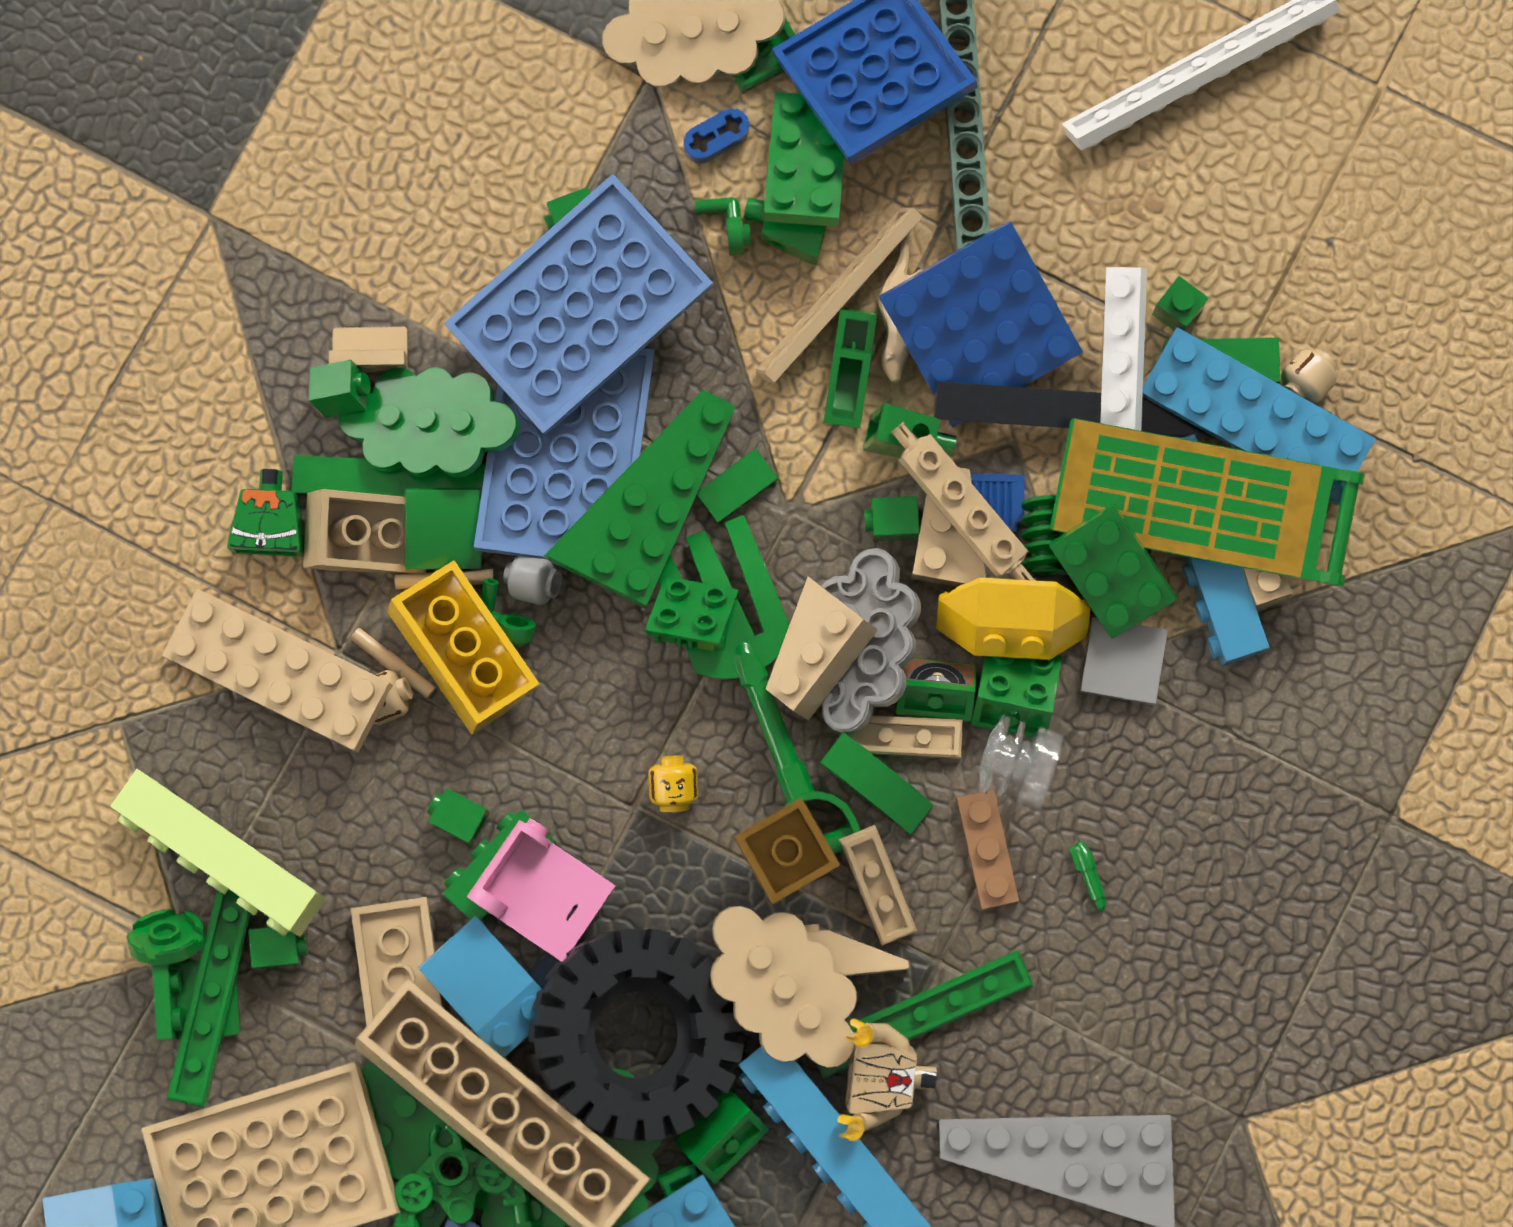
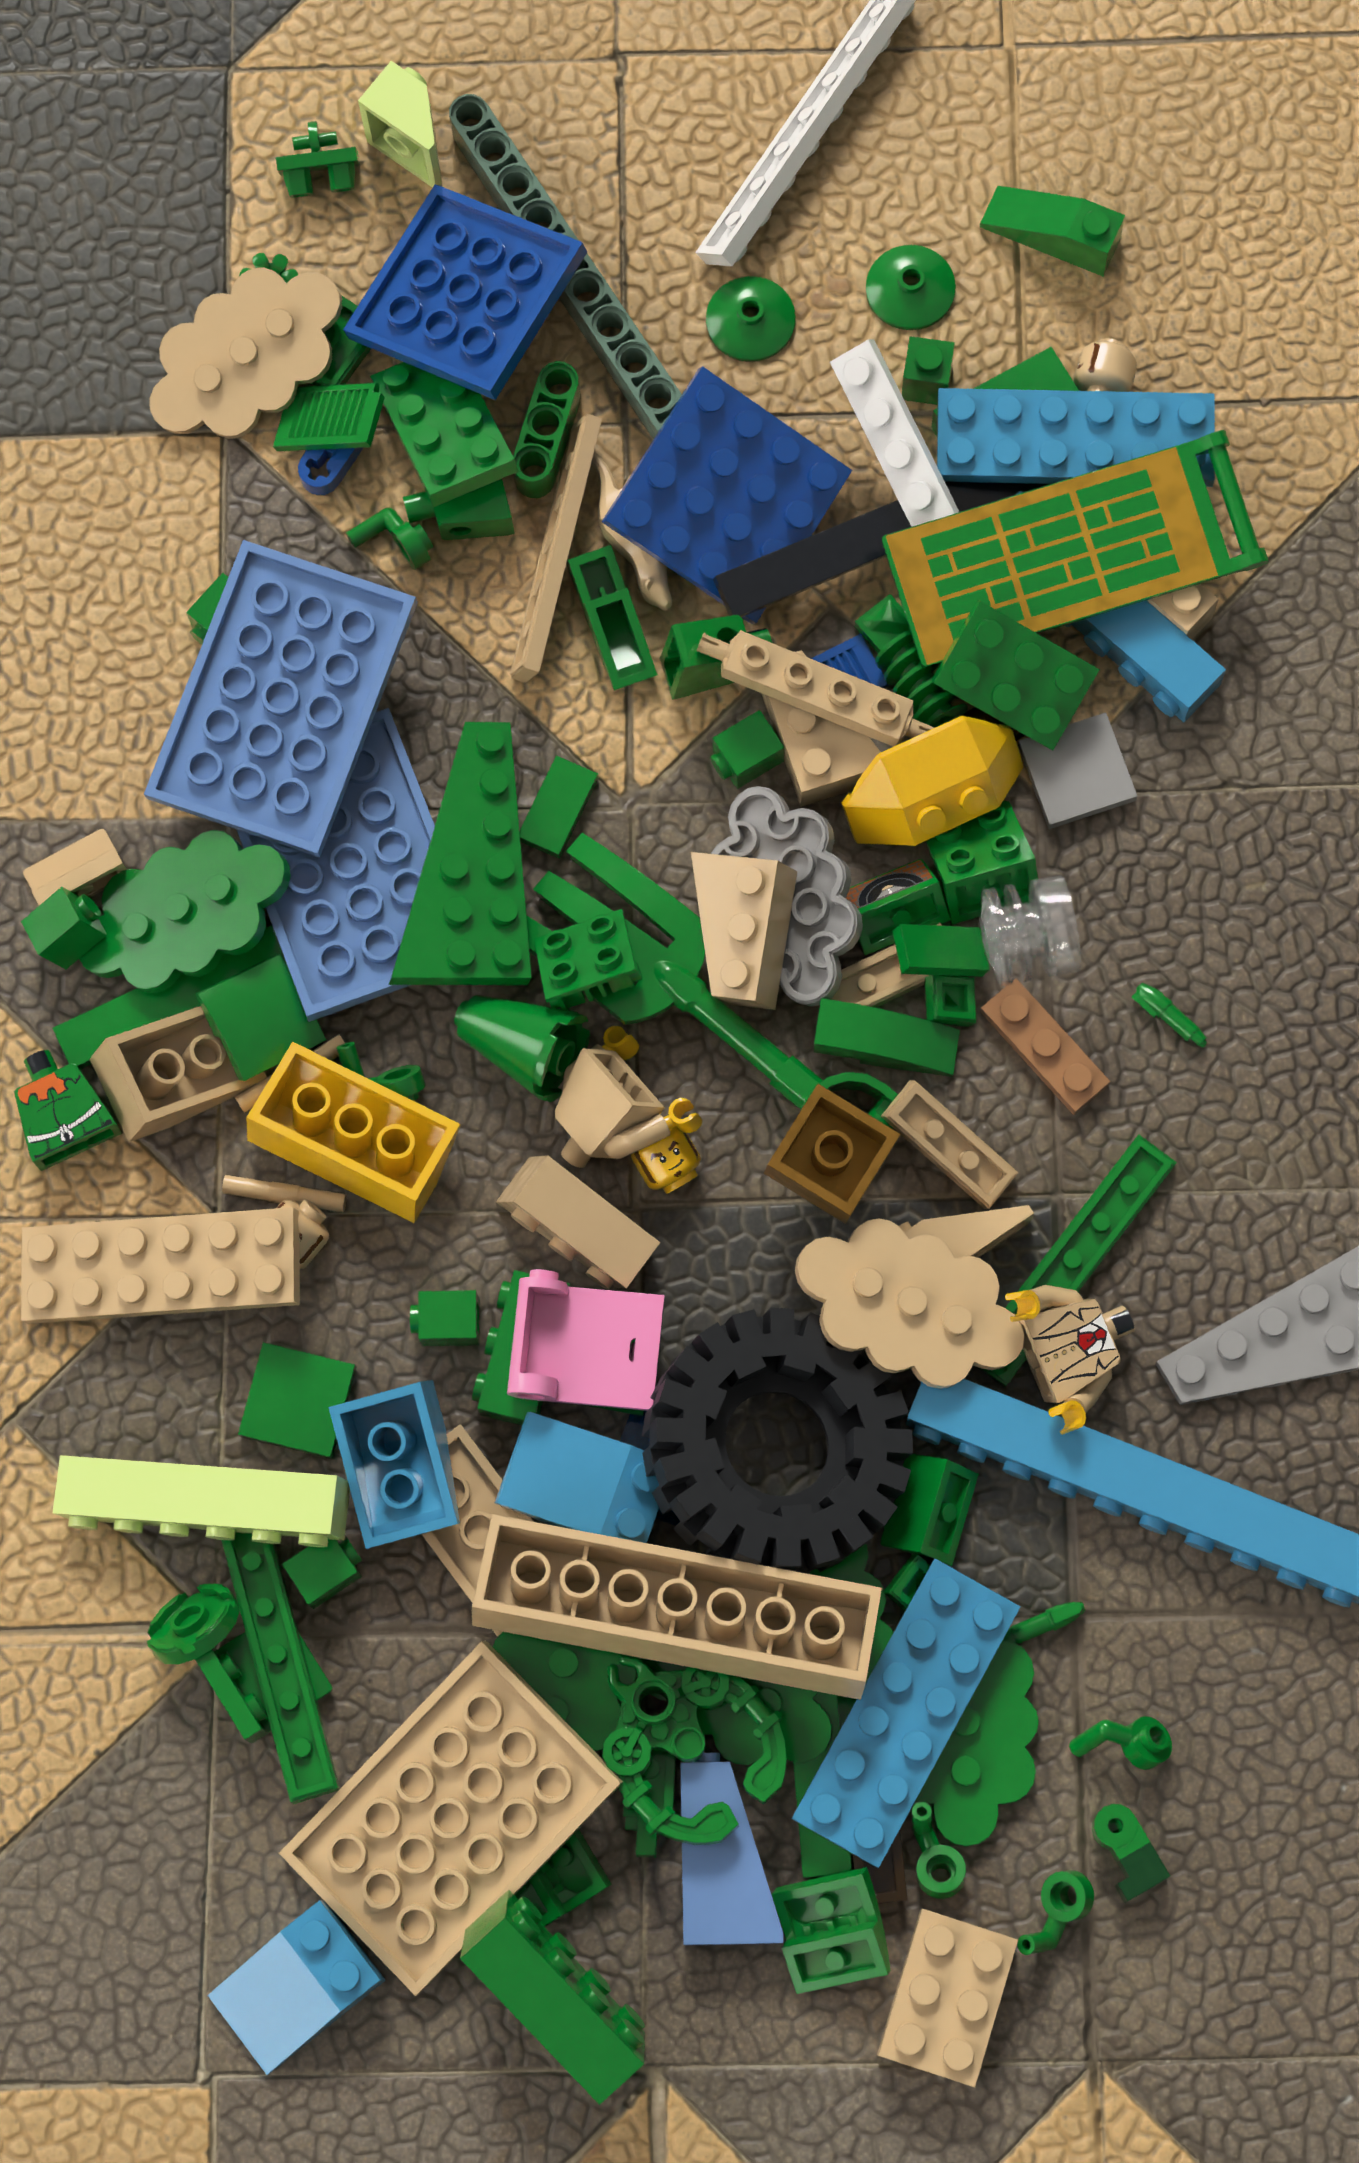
camera: 25 degrees left, 5 degrees down
(323, 816) = (292, 1400): none -> green tile
(366, 902) = (397, 1463): none -> dark azure slope
(532, 579) = (389, 1019): light grey head -> none
(584, 798) = (577, 1222): none -> tan wedge
(619, 647) = (524, 1040): none -> green cone
(651, 727) = (610, 1107): none -> tan torso
(728, 110) = (330, 418): none -> green window
(884, 184) = (543, 410): none -> green beam
(938, 780) = (950, 1000): none -> green tile
(949, 742) = (940, 950): none -> green tile
(1043, 477) = (882, 623): none -> green tile
(1070, 211) = (750, 337): none -> green dish
(1201, 250) = (908, 305): none -> green dish
(1336, 244) = (1056, 225): none -> green slope

